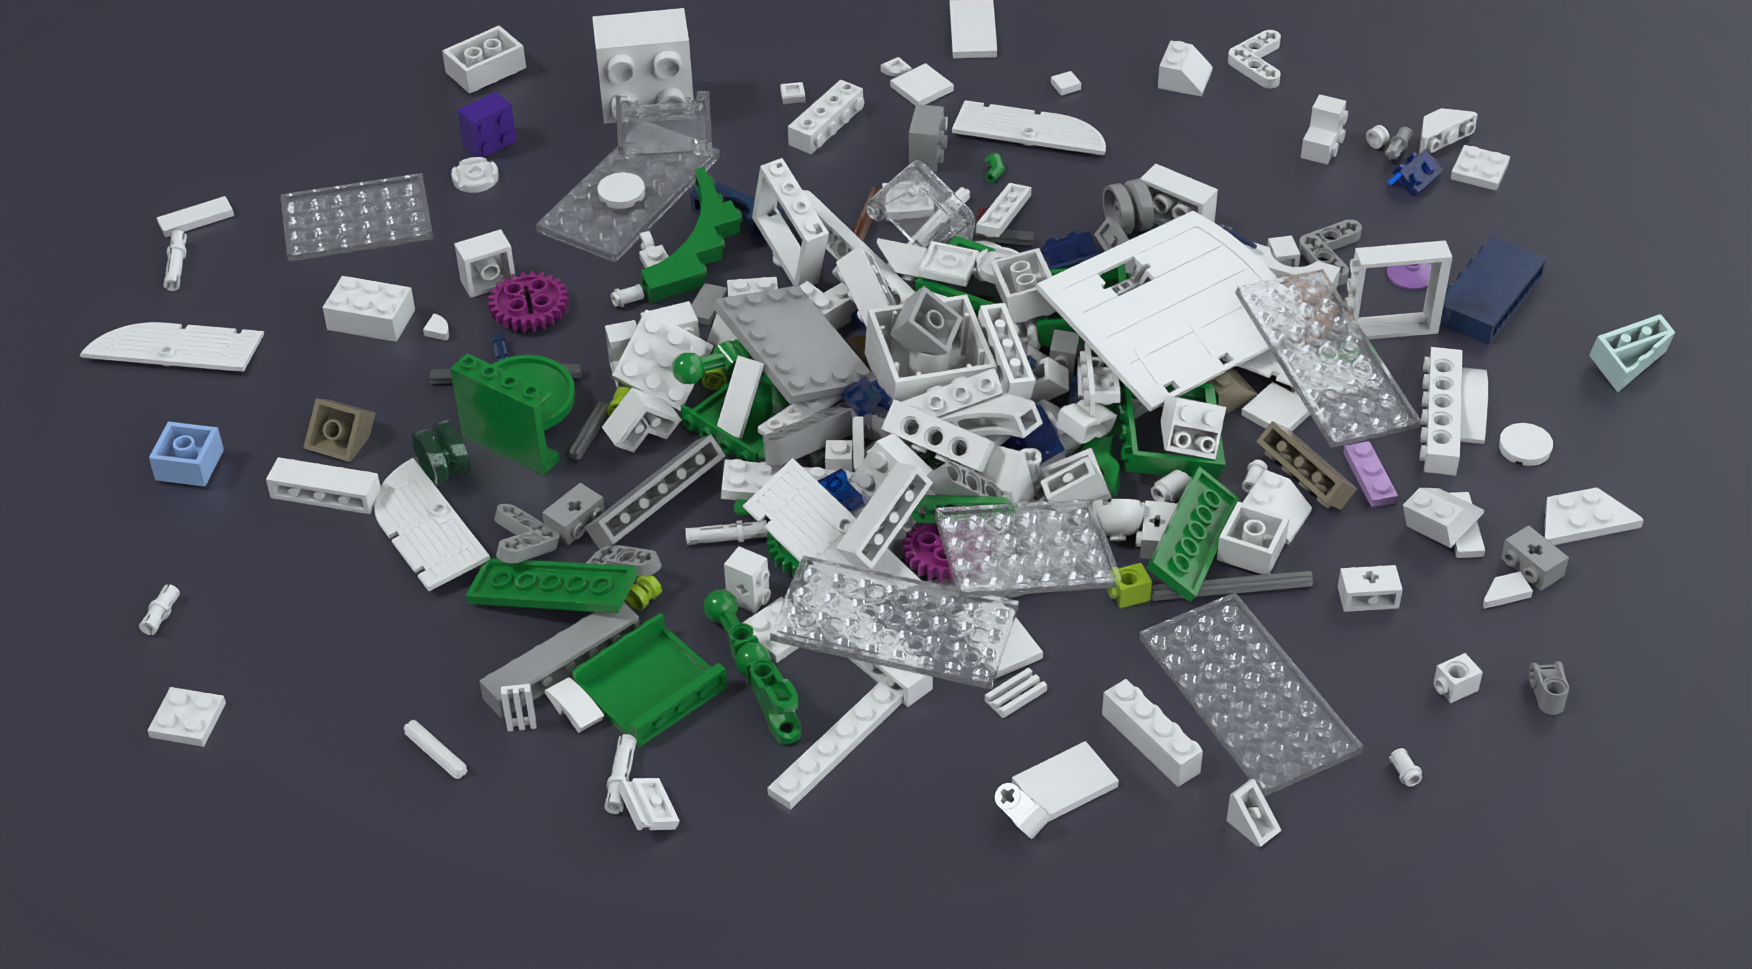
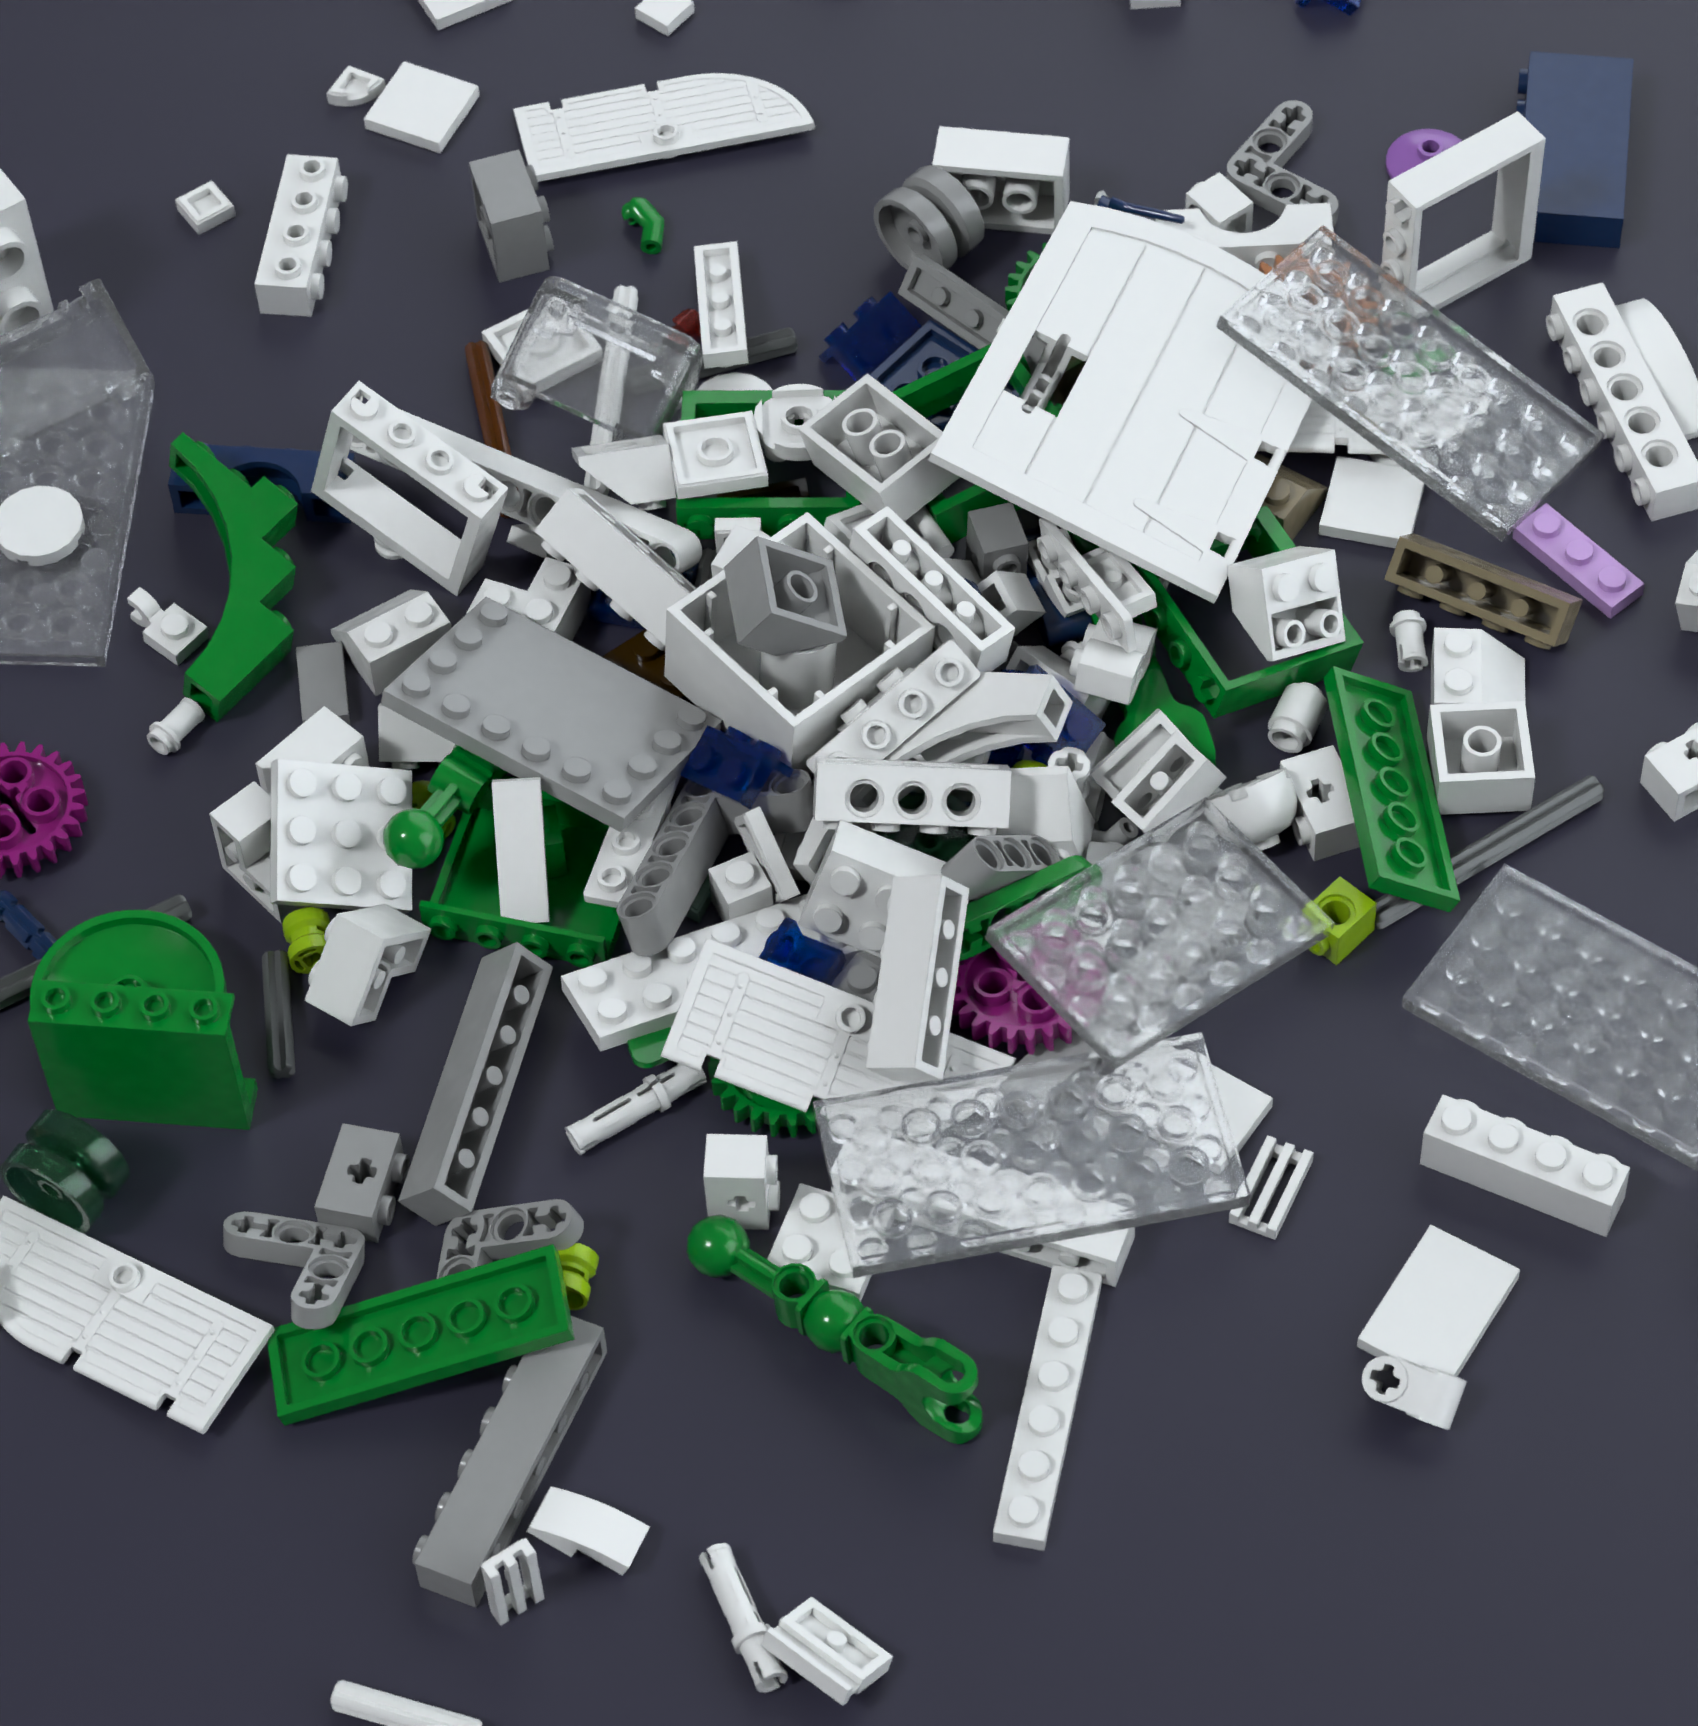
camera: 25 degrees left, 10 degrees up
(649, 680) = (681, 1432): green panel -> none

